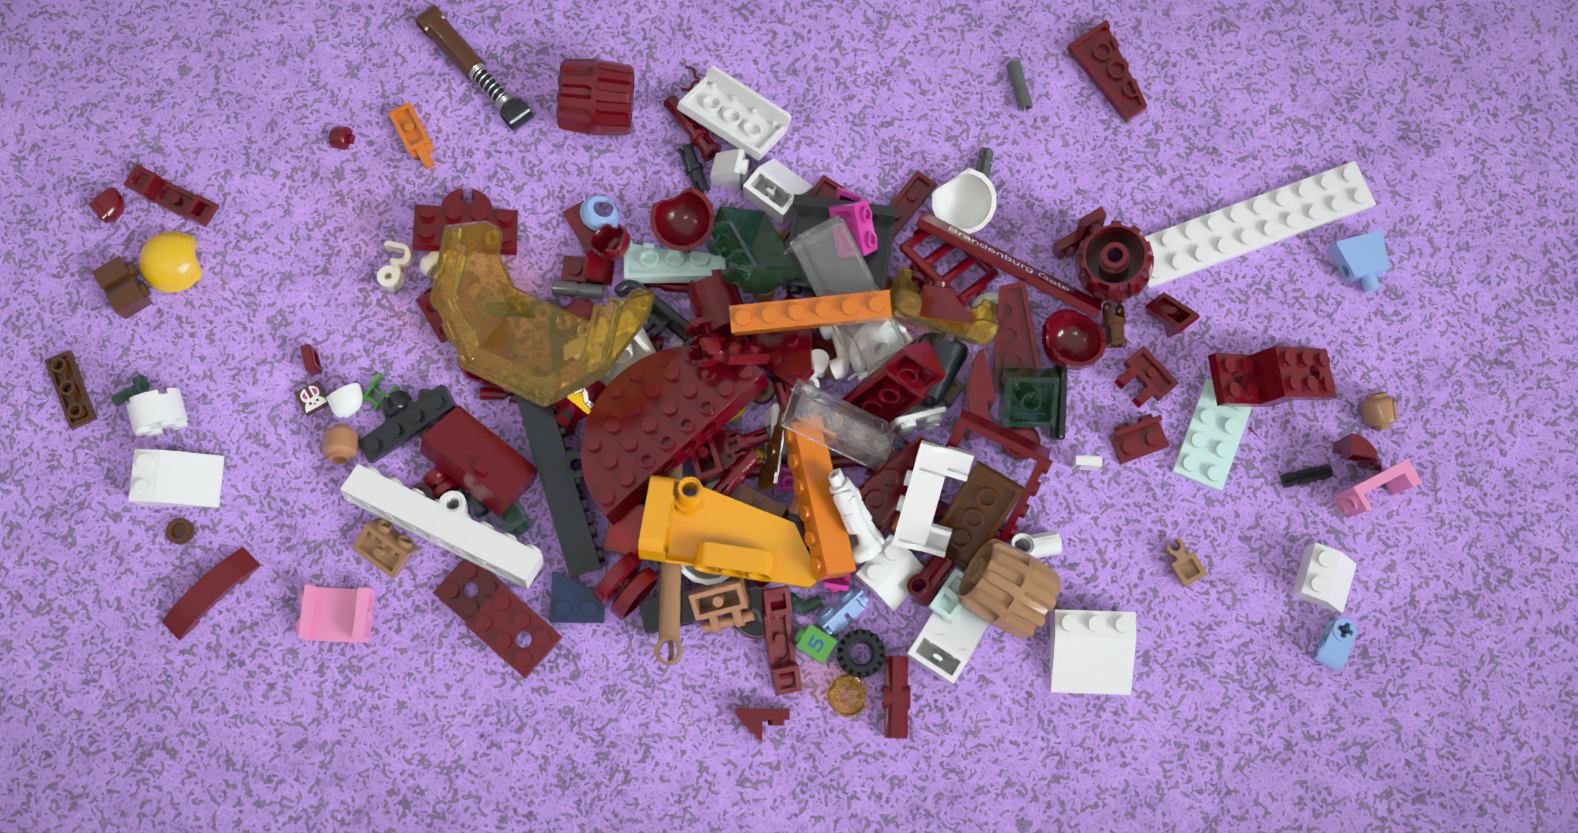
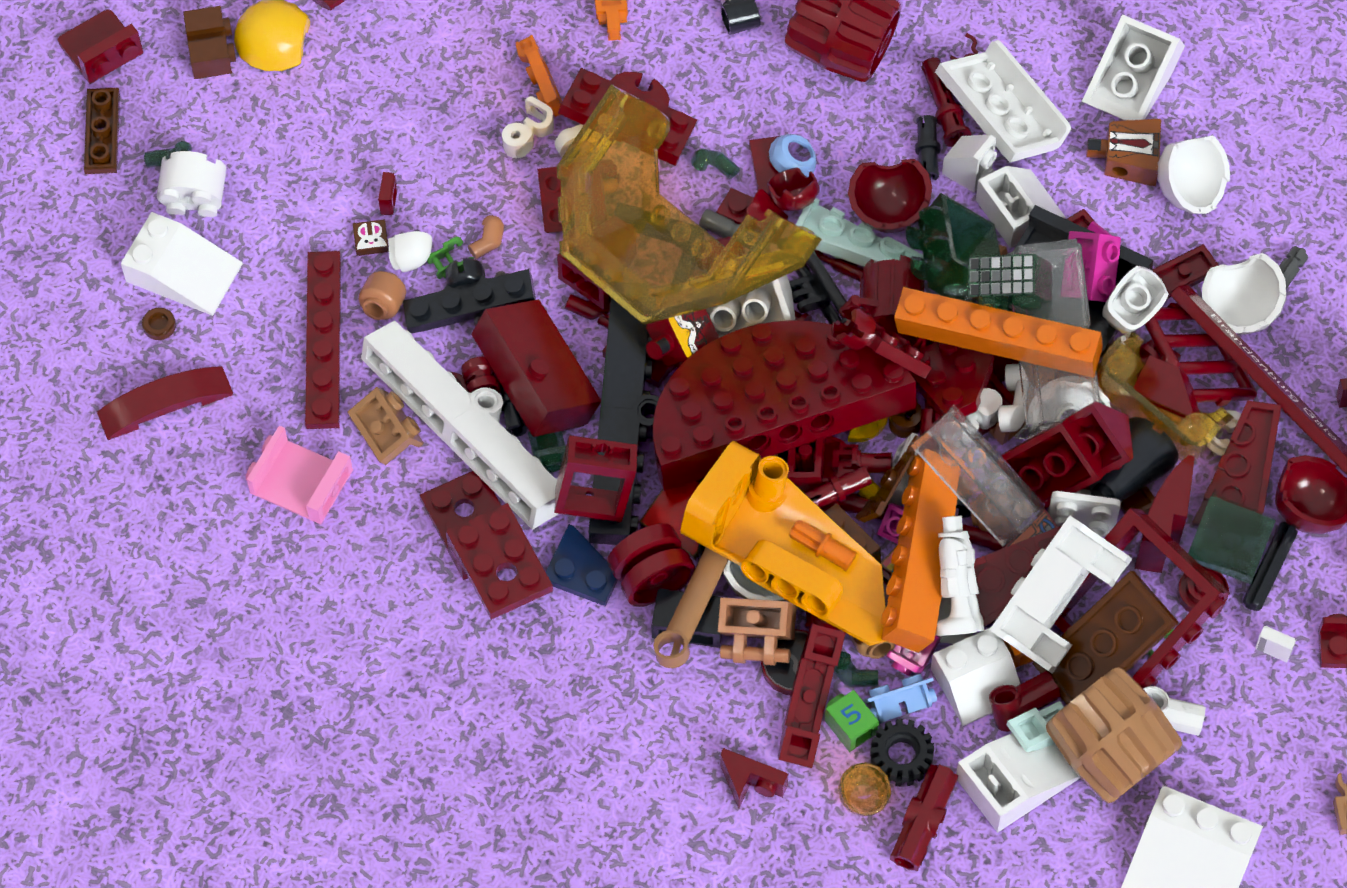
camera: 25 degrees right, 15 degrees down
(39, 320) = (101, 45): none -> dark red bracket
(310, 495) = (323, 340): none -> dark red plate
(386, 218) = (539, 73): none -> orange hinge
(403, 363) = (491, 237): none -> nougat arm
(535, 238) = (717, 159): none -> arm
(572, 540) = (583, 457): none -> dark red window
(746, 527) = (822, 544): none -> orange axle
(806, 272) = (1010, 281): none -> brick
(816, 53) = (1133, 70): none -> white slope
(839, 116) = (1129, 150): none -> dark orange torso
(892, 120) = (1194, 174): none -> white cylinder
(896, 244) = (1135, 300): none -> white piece

